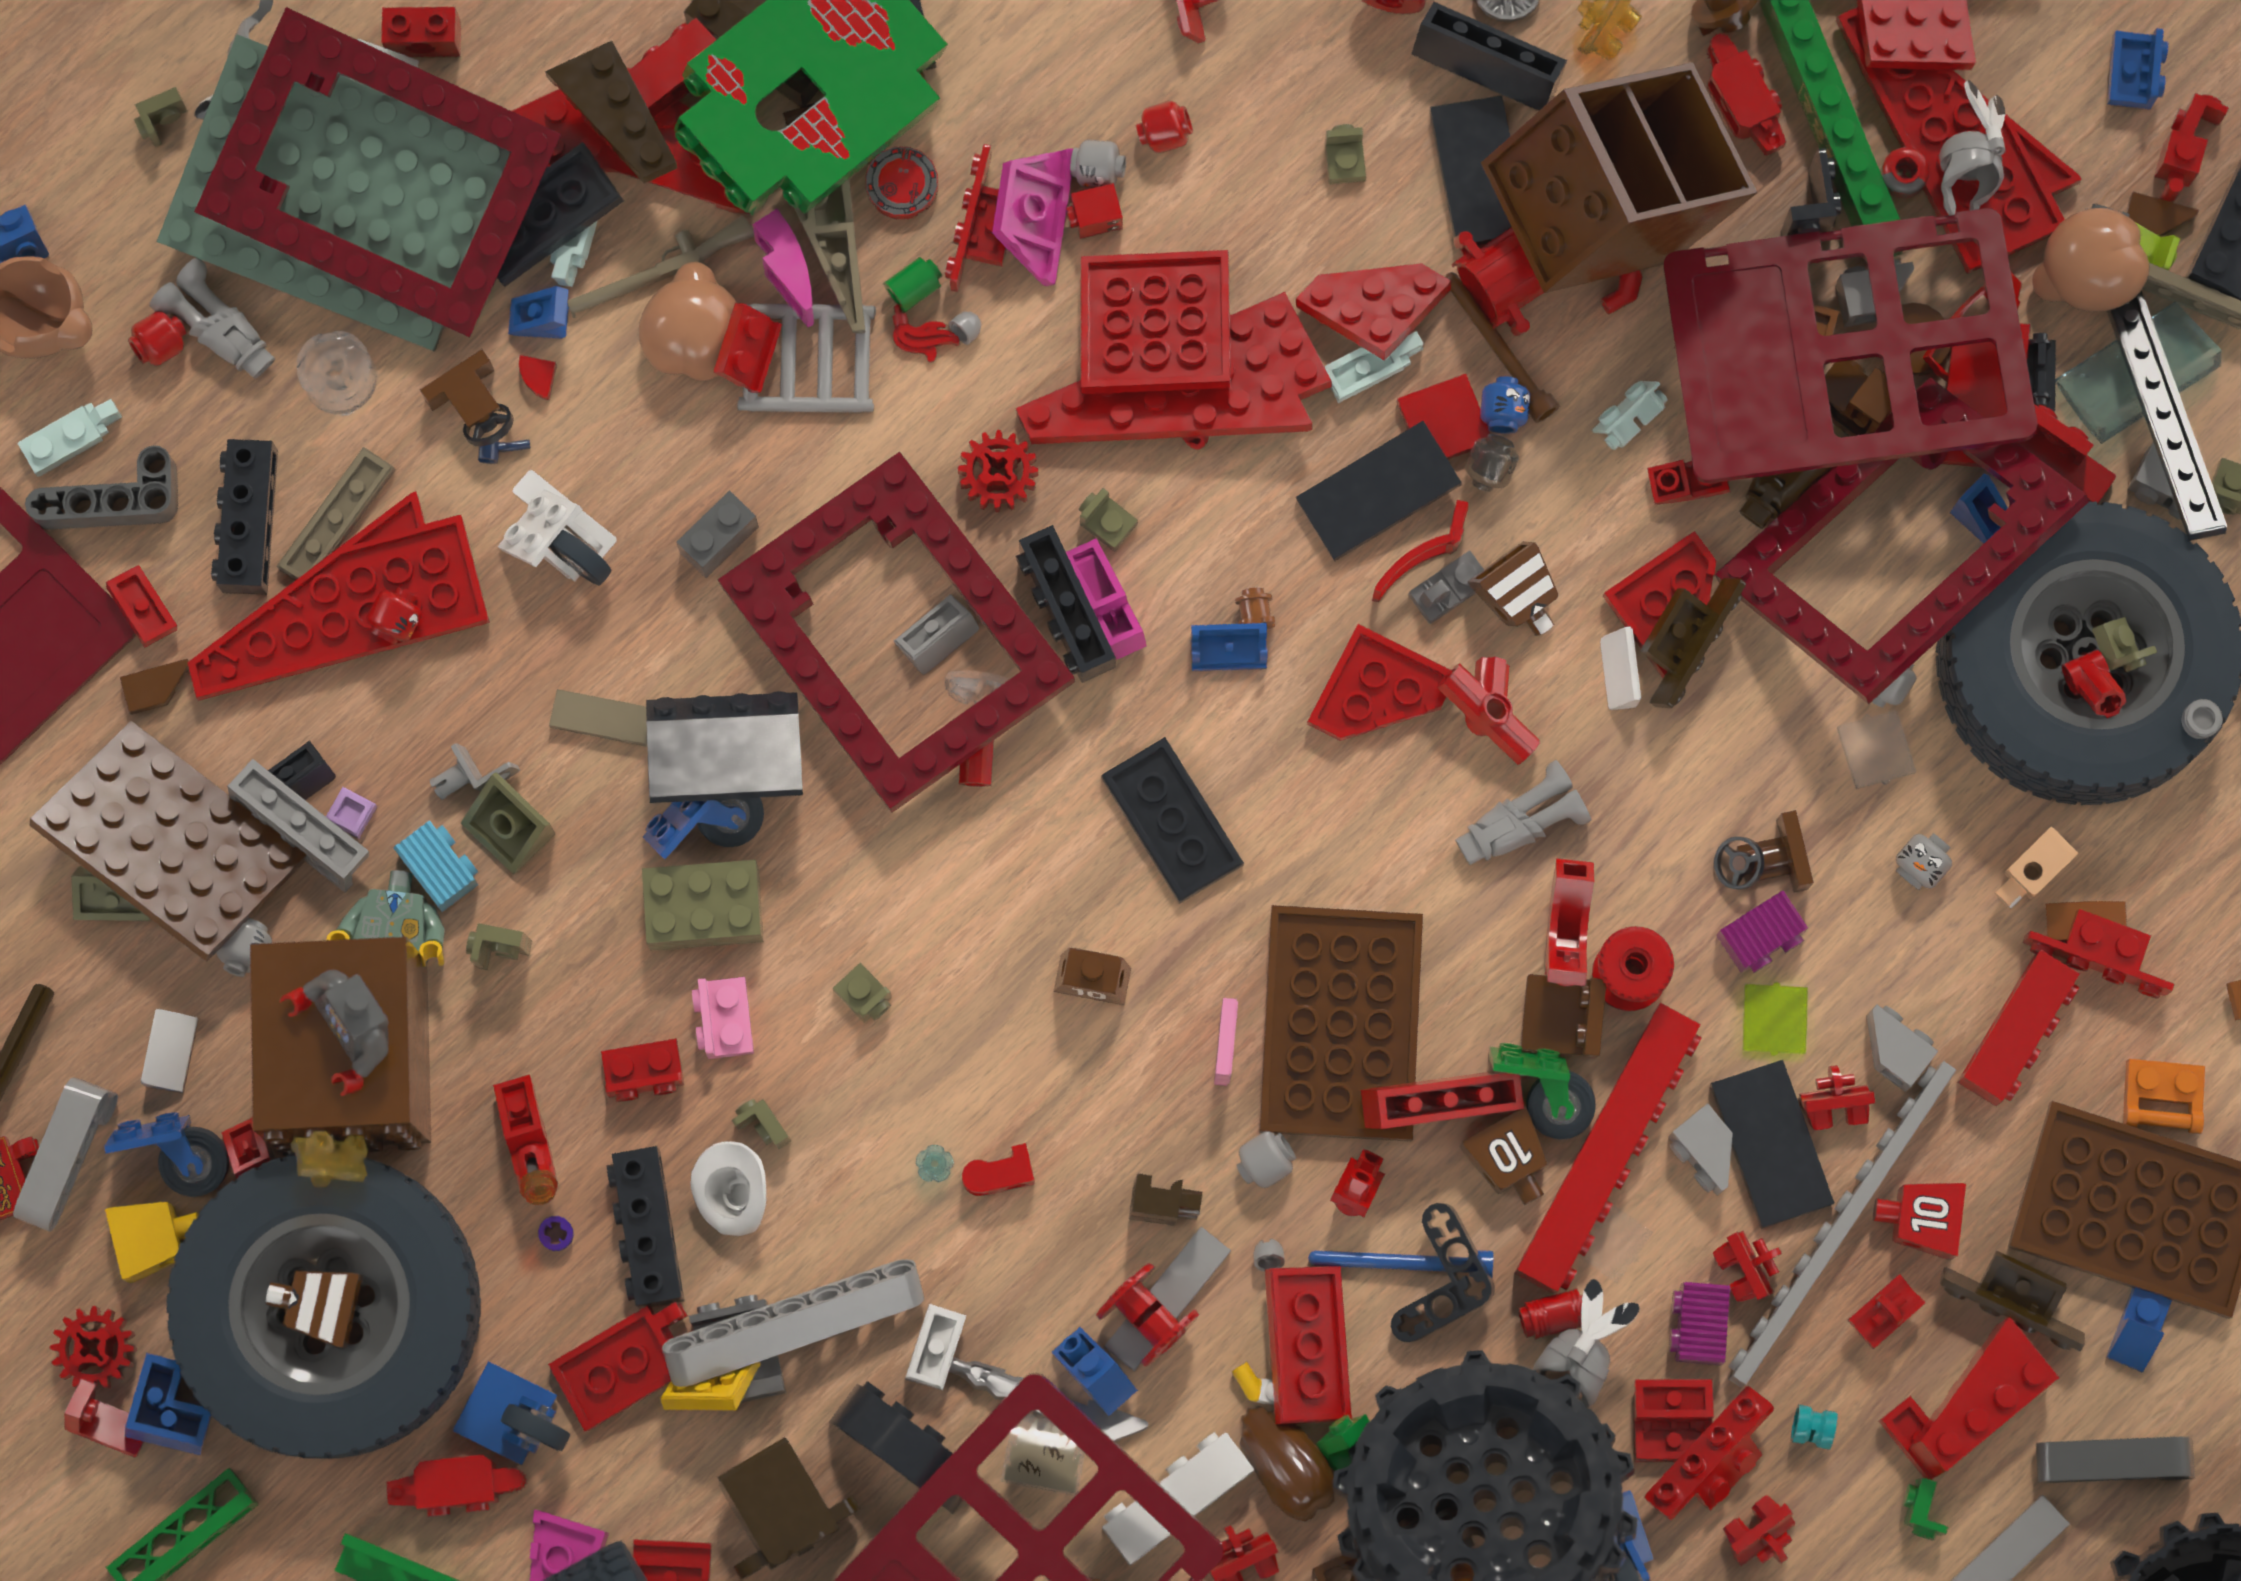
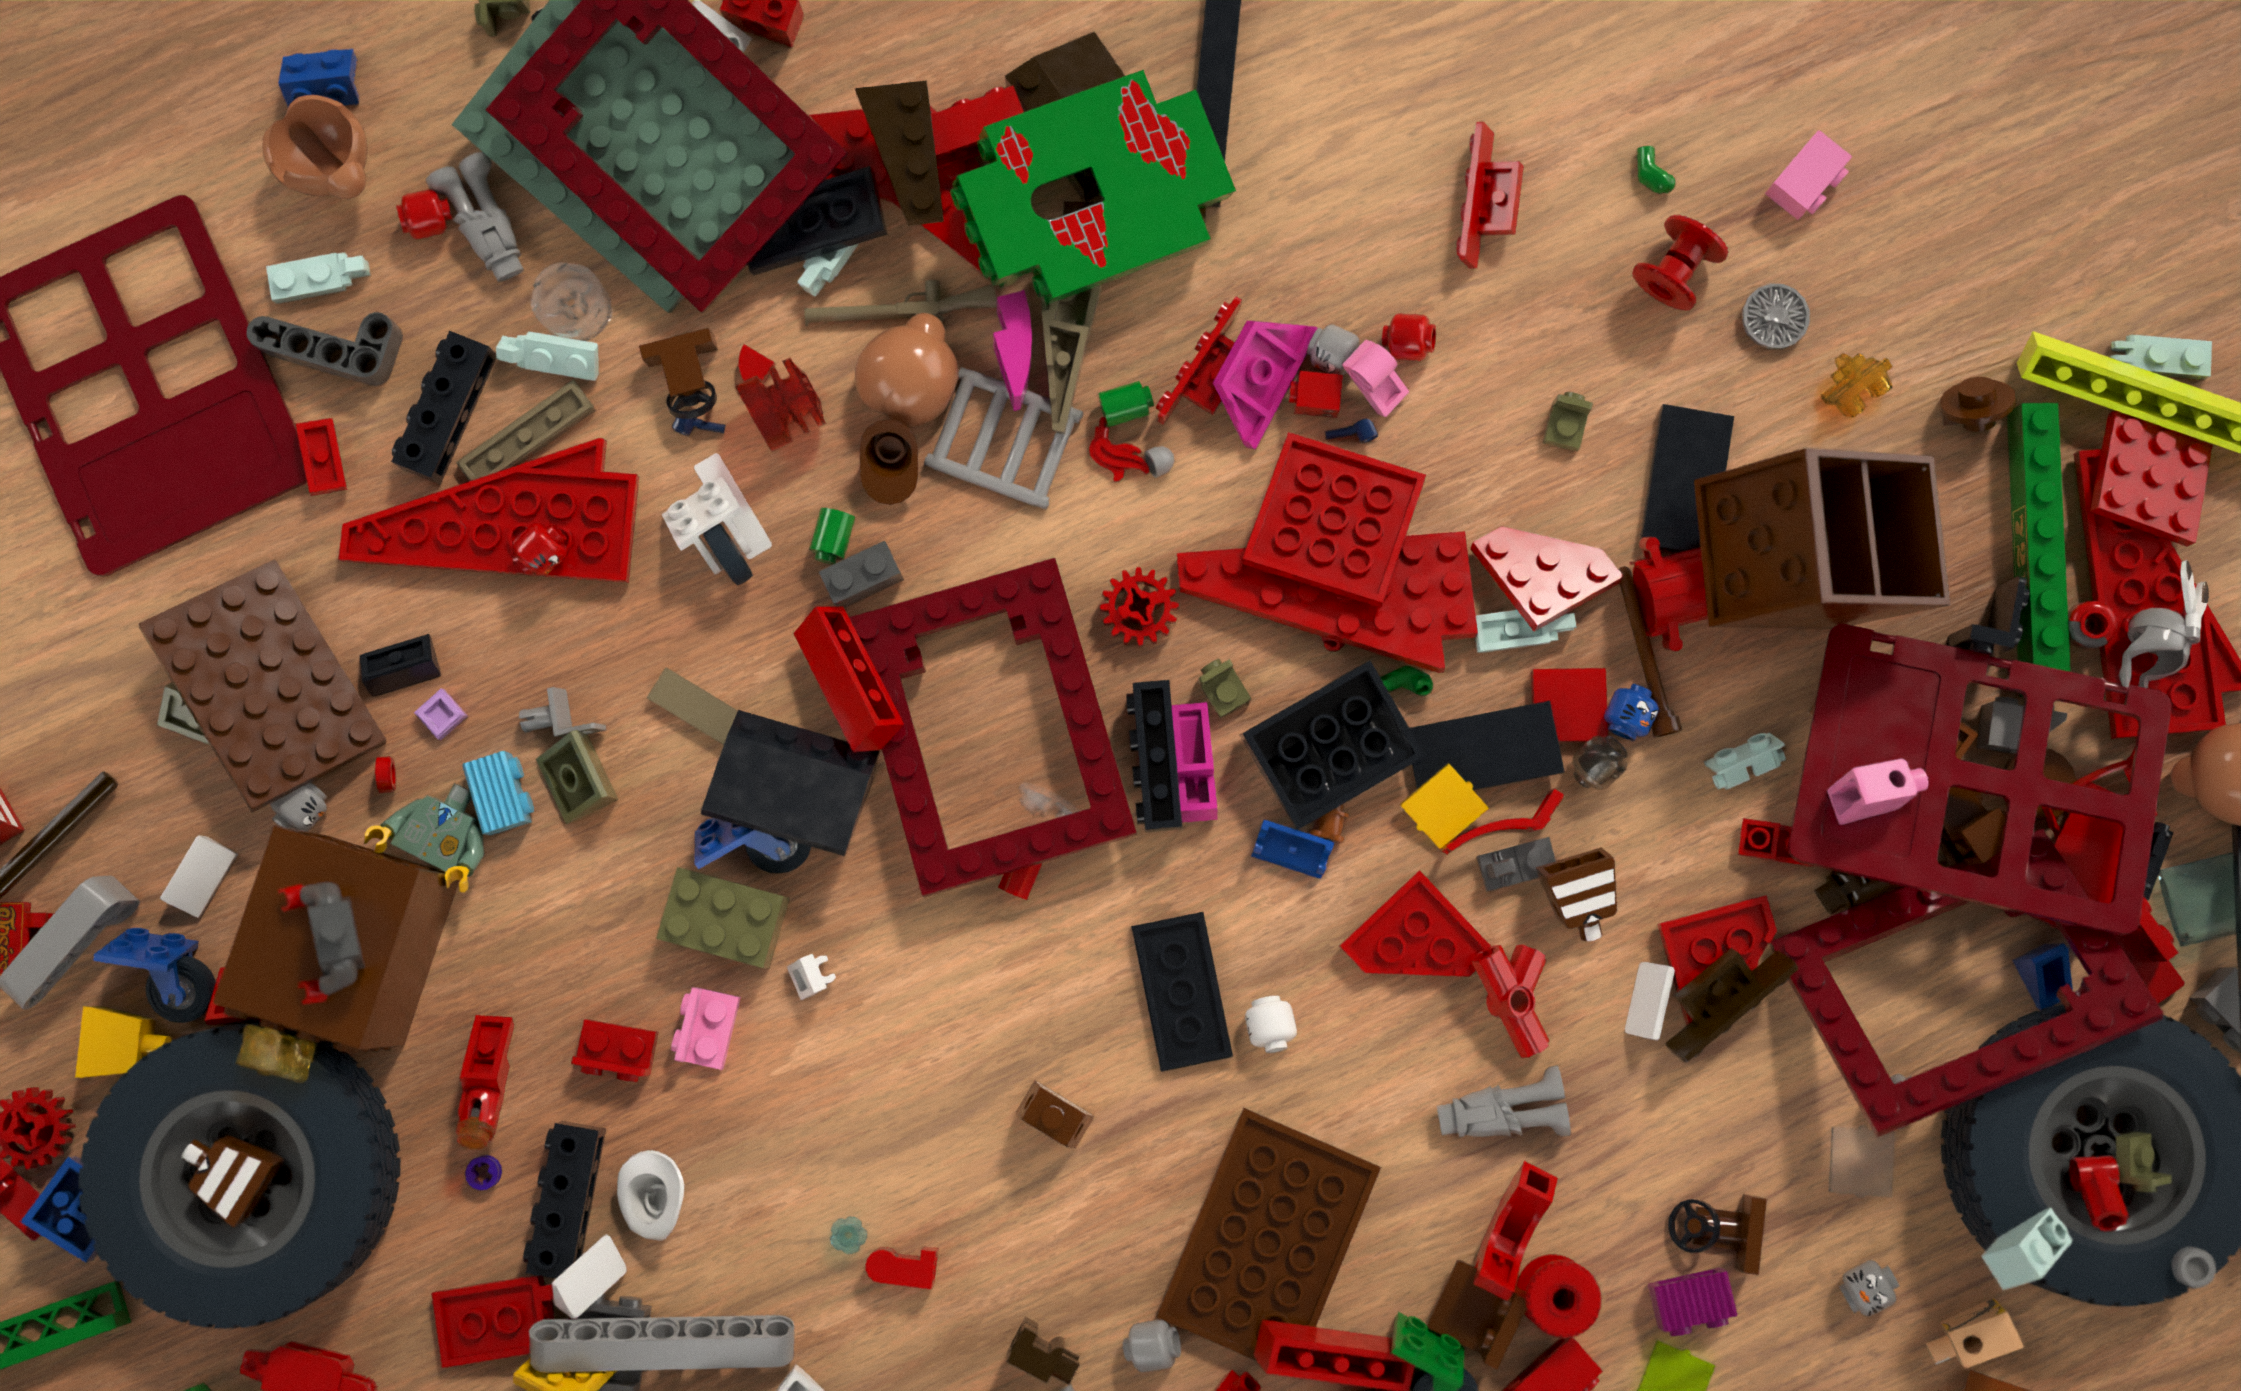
camera: 25 degrees right, 5 degrees up
(152, 686) = (305, 534): reddish brown tile -> none
(299, 824) = (385, 709): light grey fence -> none
(319, 887) = (385, 774): none -> red tile
(334, 429) = (551, 354): none -> light aqua hinge
(503, 941) = (521, 887): olive bracket -> none
(510, 1415) = (381, 1330): blue plate -> none
(540, 314) = (776, 313): blue slope -> none
(580, 397) = (781, 404): none -> clear red wheel
(673, 506) = (831, 535): none -> green brick
(698, 1288) = (588, 1278): none -> white slope
(705, 416) = (888, 461): none -> reddish brown piece
(742, 632) = (848, 678): none -> red brick
(747, 348) = (949, 412): red plate -> none
(769, 1126) = (710, 1143): olive bracket -> none
(805, 932) = (807, 976): none -> white tile
(863, 994) = (841, 1052): olive bracket -> none
(901, 182) = (1149, 304): tile -> none
(937, 634) = (1029, 739): light grey slope -> none
(1142, 171) = (1374, 375): none -> bright pink plate
(1152, 228) = (1364, 429): none -> dark blue hand
(1226, 1041) = (1153, 1226): bright pink tile -> none
(1230, 533) = (1332, 745): none -> black slope
(1268, 817) = (1270, 1023): none -> white head
(1281, 449) = (1410, 679): none -> green arm
(1359, 555) = (1444, 806): none -> yellow piece
(1488, 57) = (1735, 376): black brick -> none
(1625, 294) = (1782, 645): red arm -> none
(1744, 96) = (1964, 495): red hinge -> none
(1752, 388) = (1875, 790): none -> bright pink torso
(2042, 755) = (2027, 1250): none -> light aqua slope

